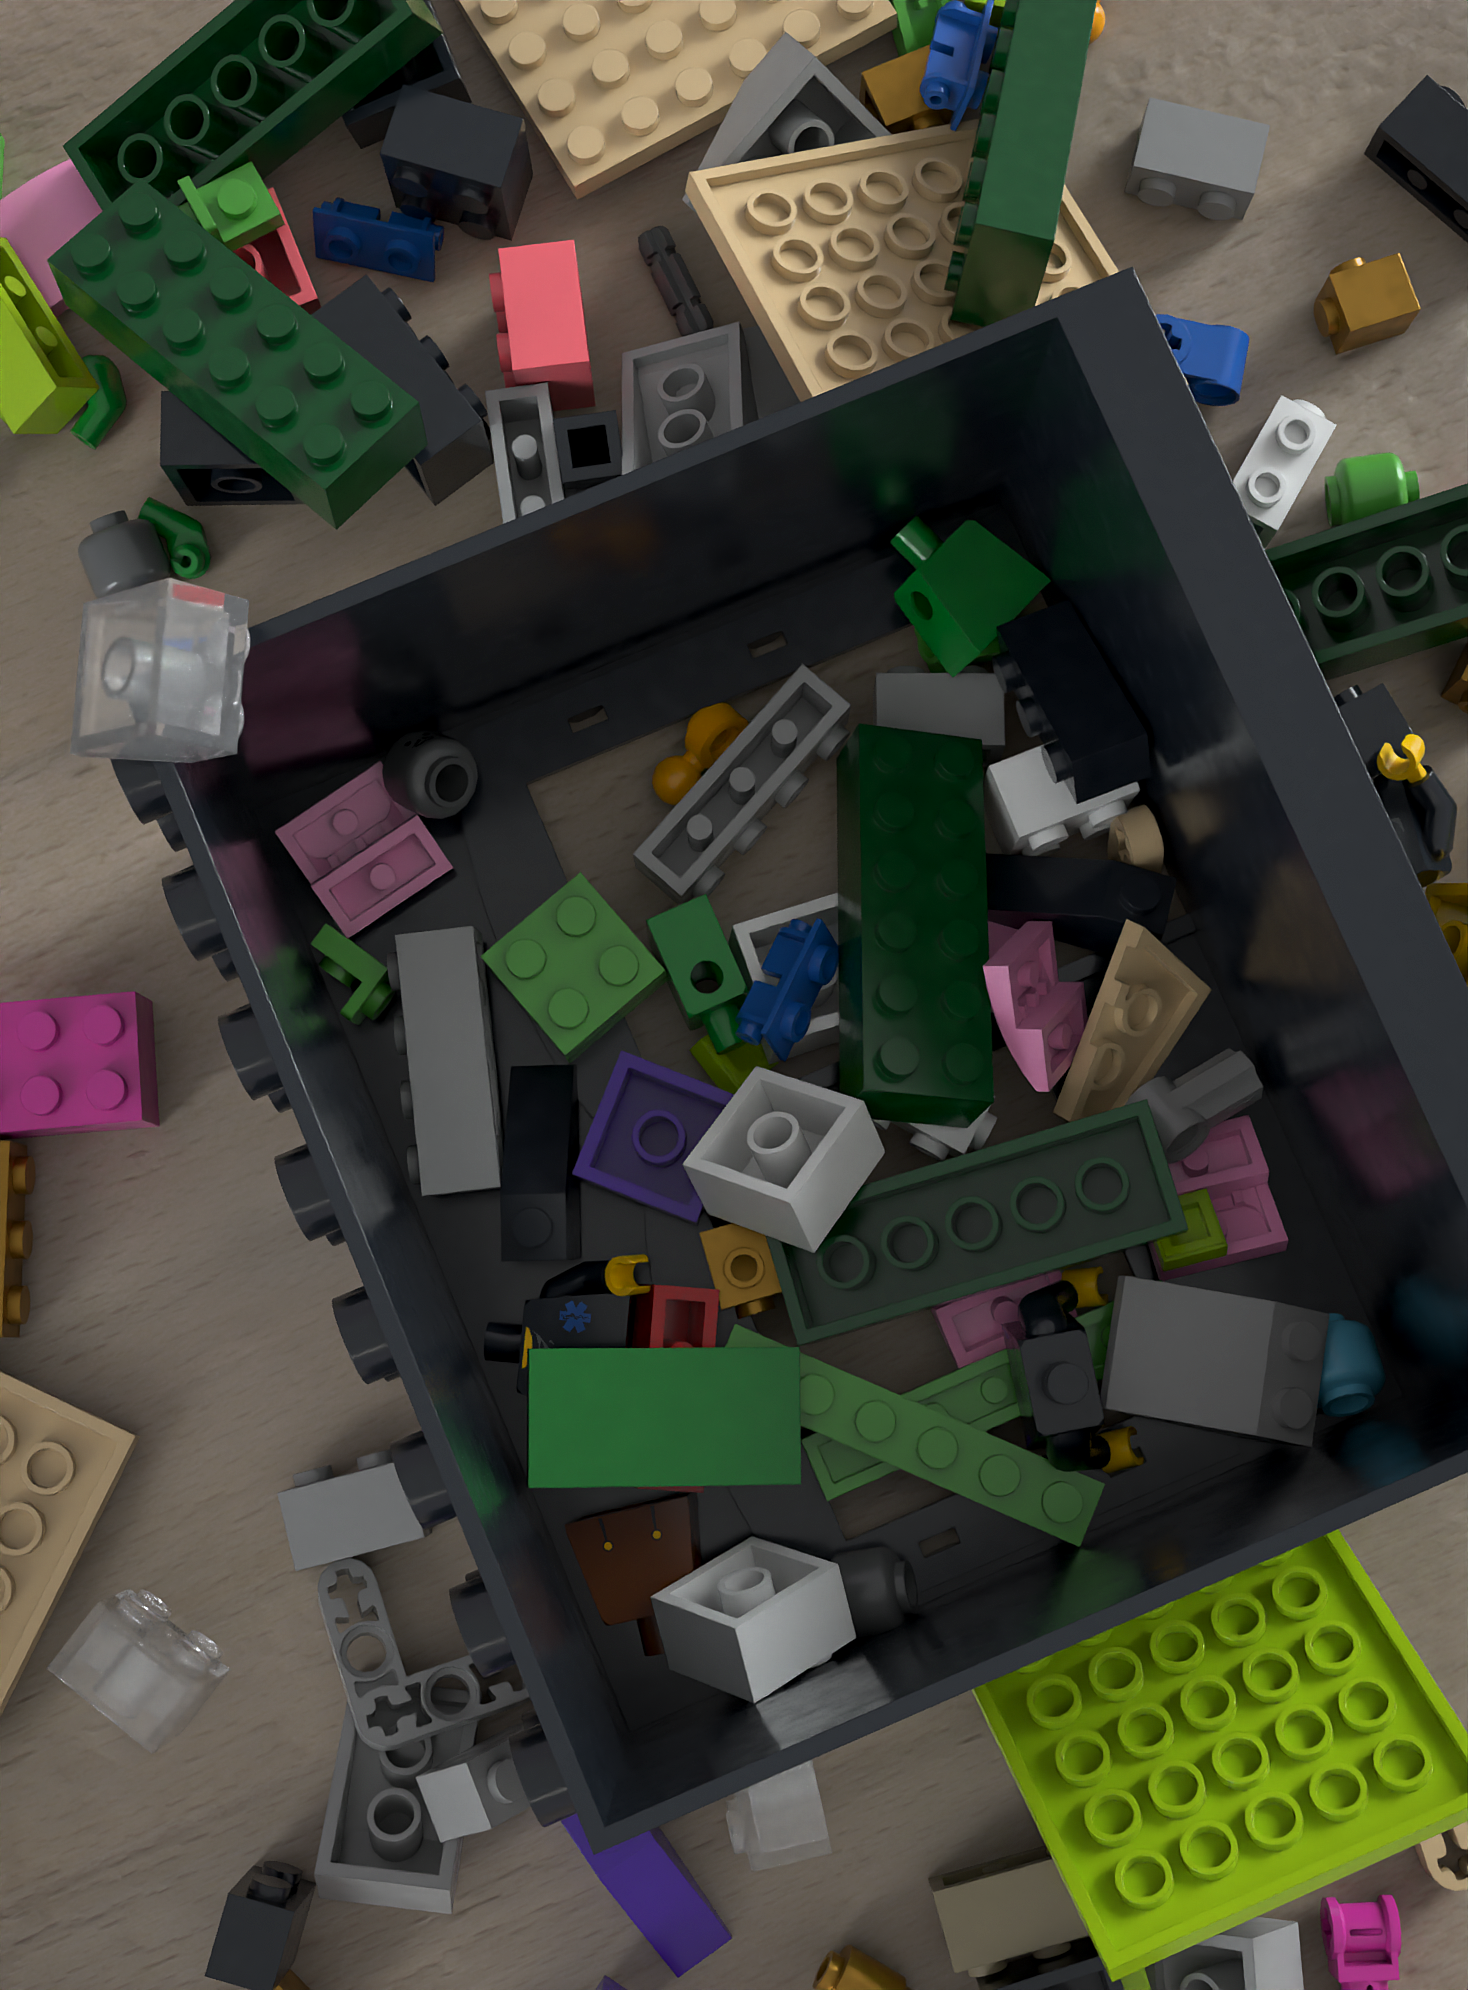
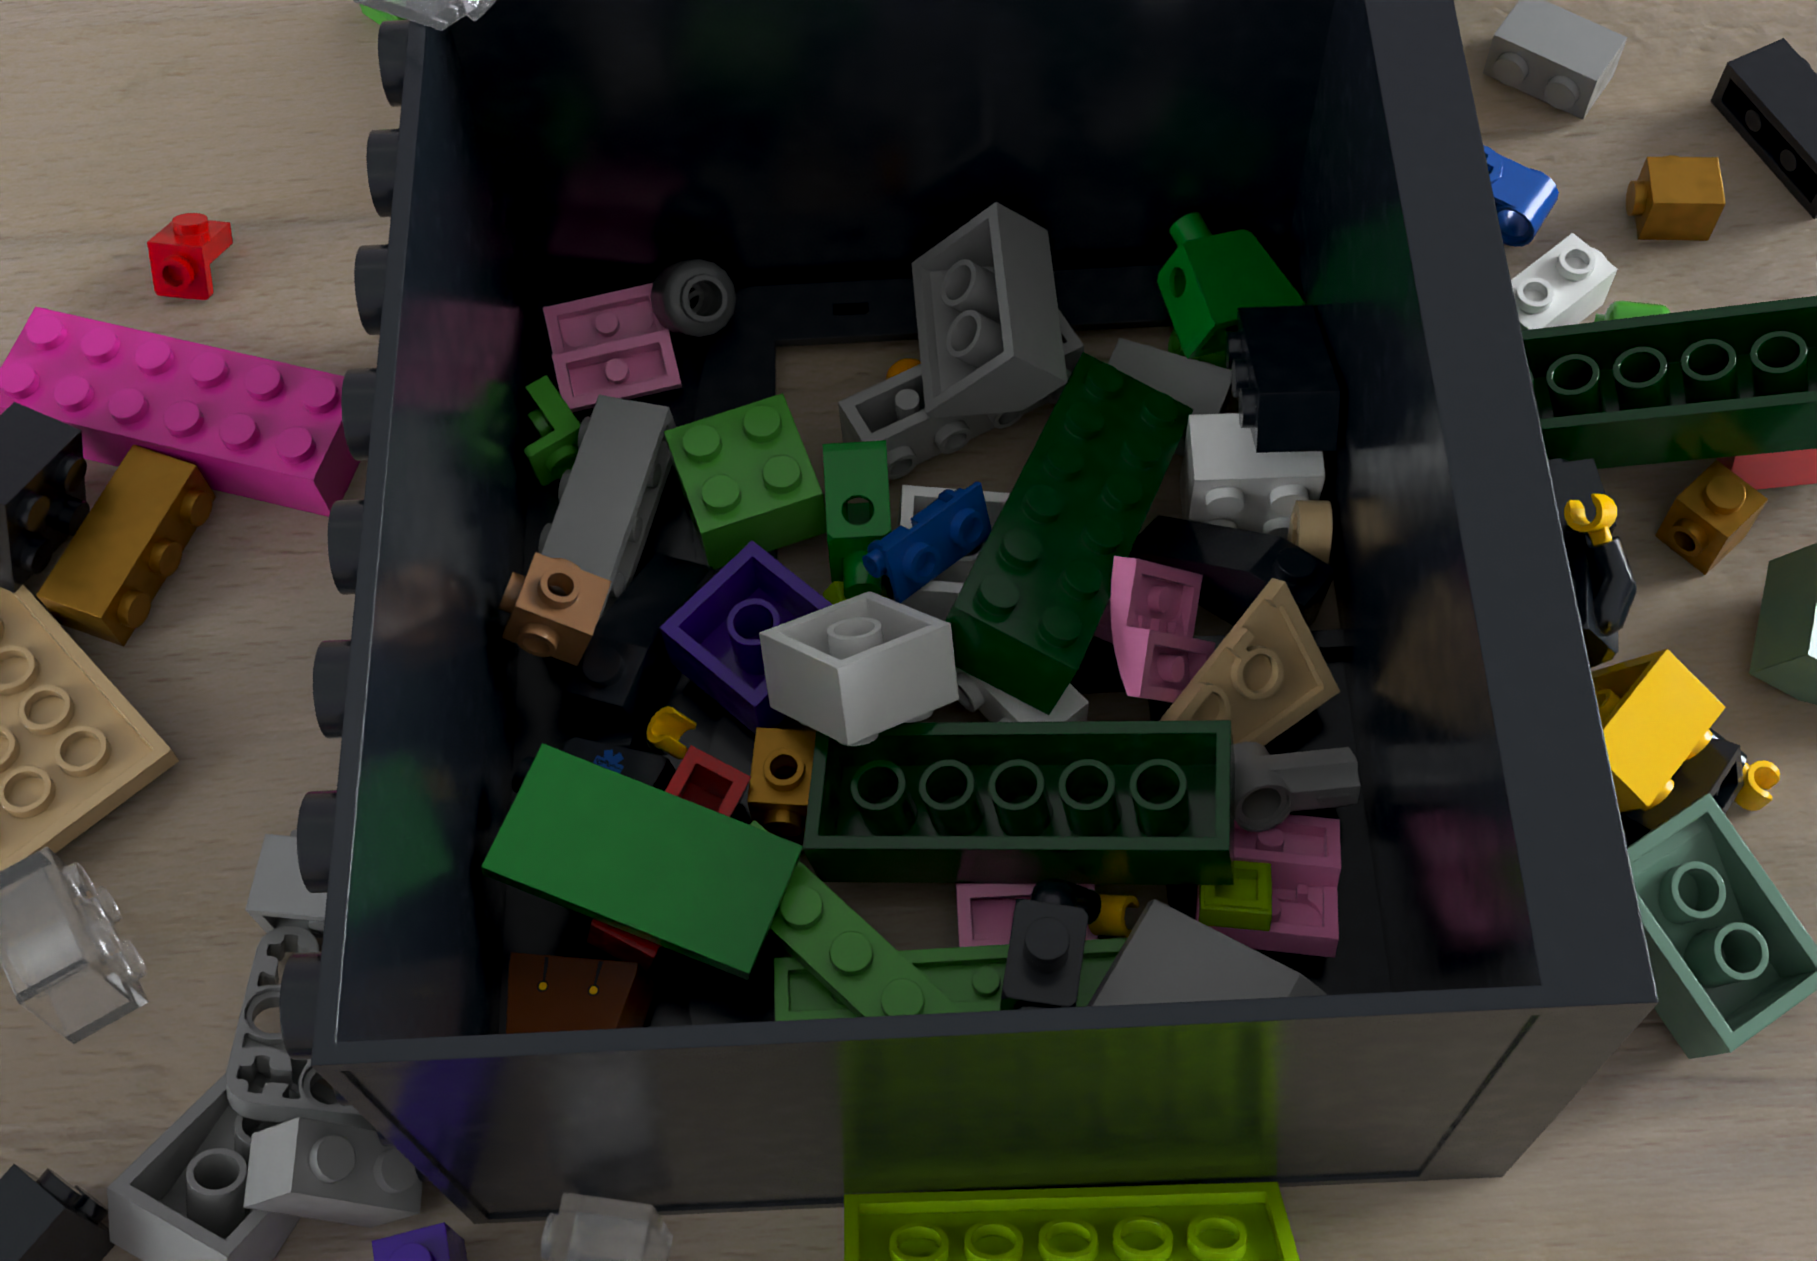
camera: 25 degrees right, 20 degrees down
(469, 1198) = (553, 608): none -> medium nougat brick
(752, 718) = (988, 317): none -> light grey slope

